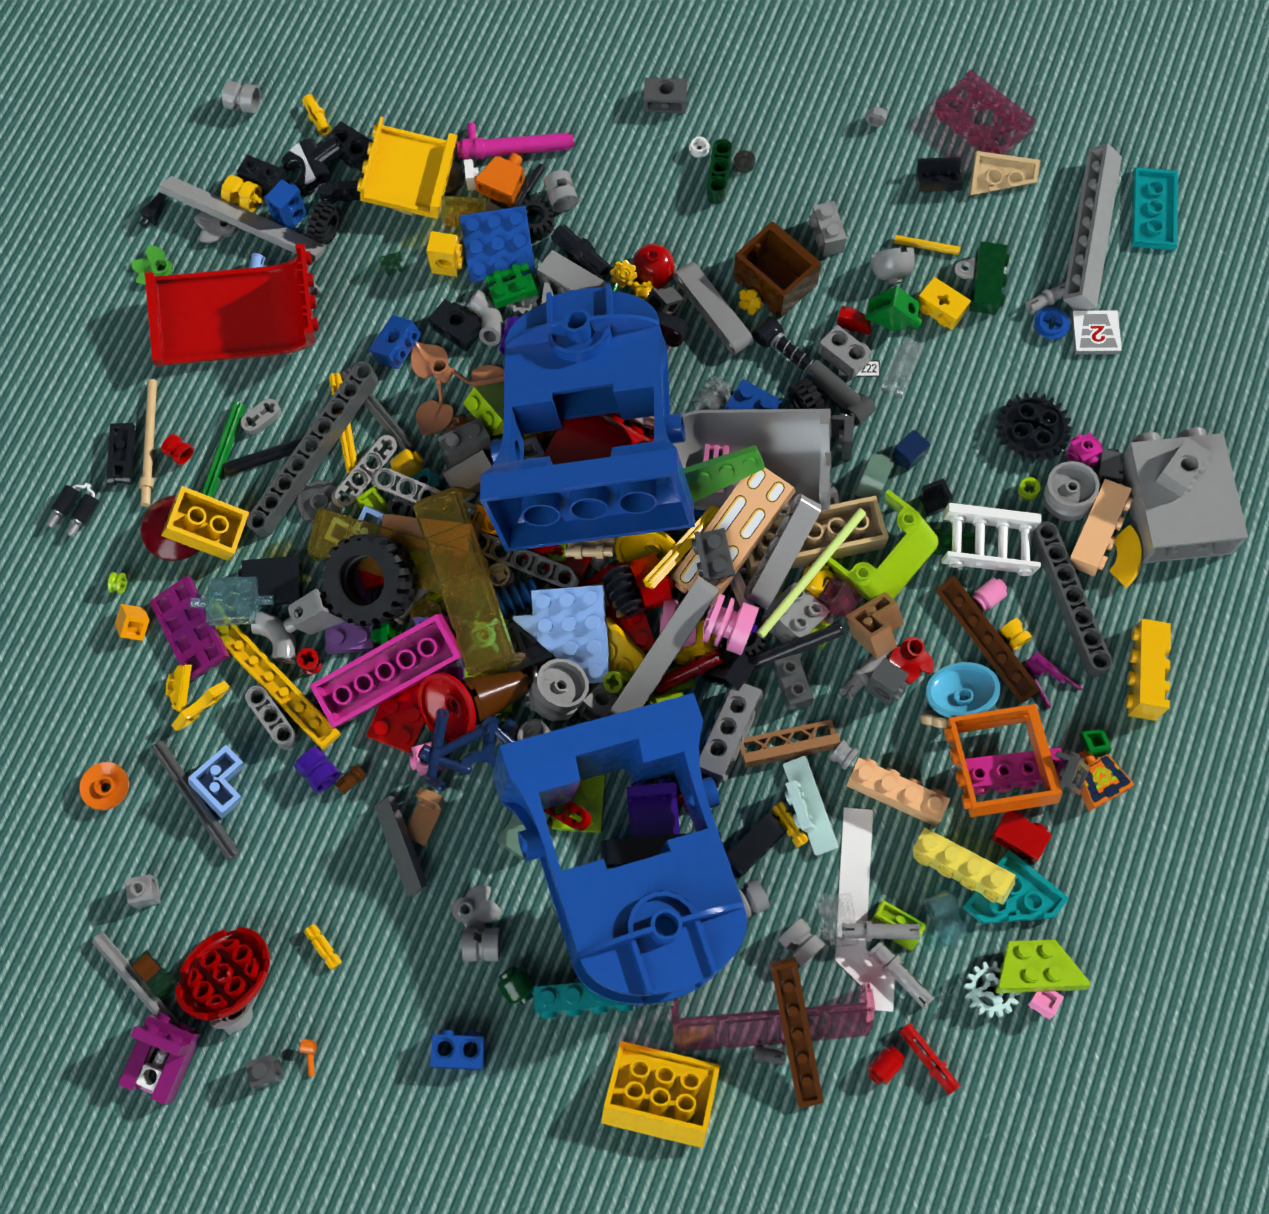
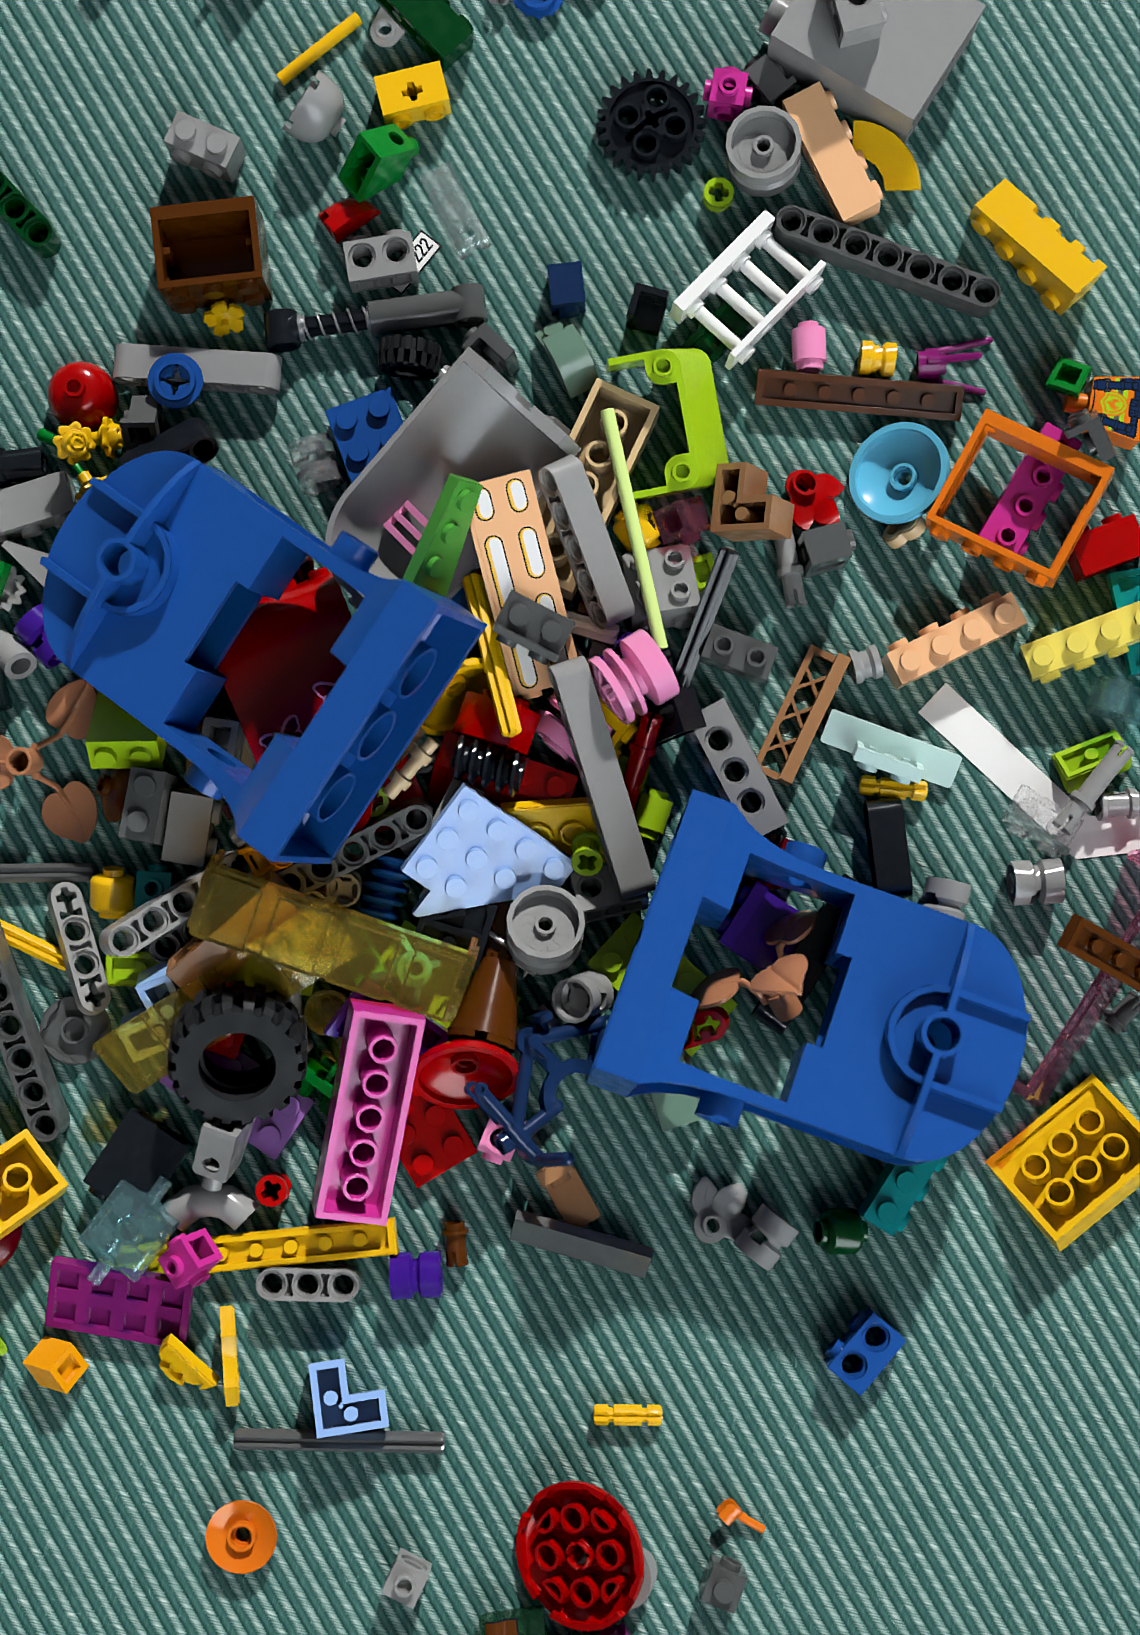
camera: 50 degrees left, 15 degrees up
(239, 642) = (190, 1259): none -> dark pink brick
(622, 840) = (776, 984): none -> nougat plant
(698, 290) = (165, 369): none -> blue gear
(744, 161) = (28, 171): clear smoke tile -> none

